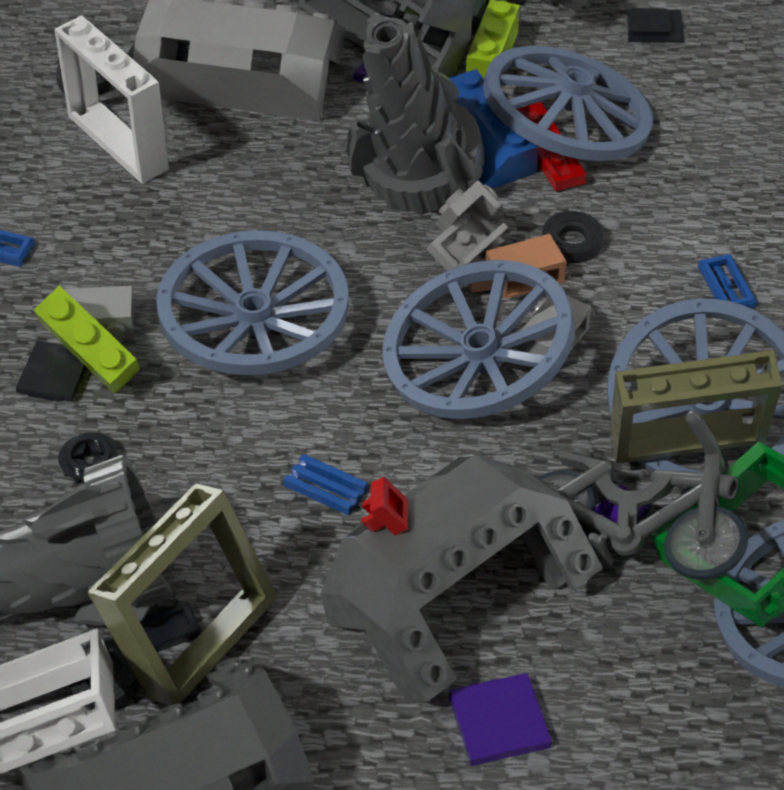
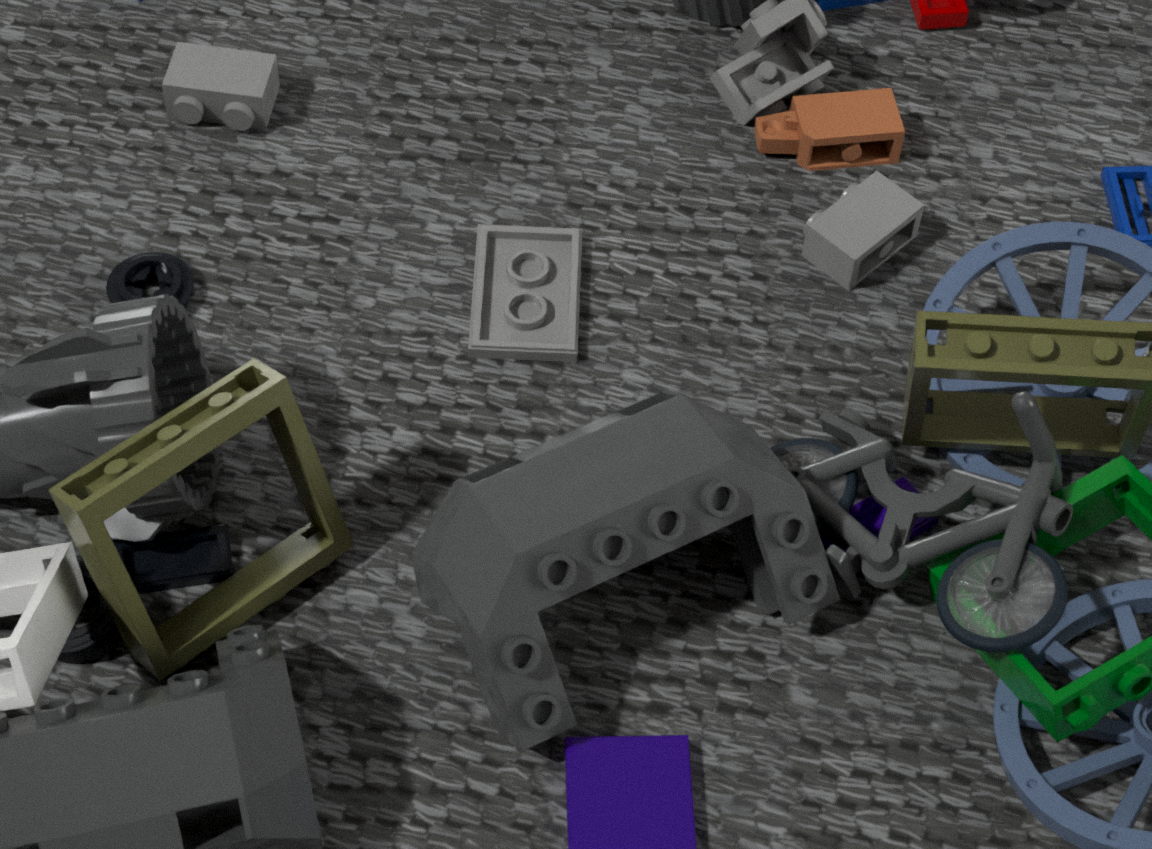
camera: 10 degrees right, 5 degrees up
(51, 373) = (139, 156): black piece -> none
(87, 339) = (188, 119): lime brick -> none
(253, 310) = (439, 119): sand blue wheel -> none
(323, 476) = (484, 425): blue tile -> none
(342, 413) = (526, 293): none -> light grey tile
(386, 508) = (524, 449): red tile -> none
(480, 345) = (750, 231): sand blue wheel -> none
(578, 222) = (938, 78): black tyre -> none

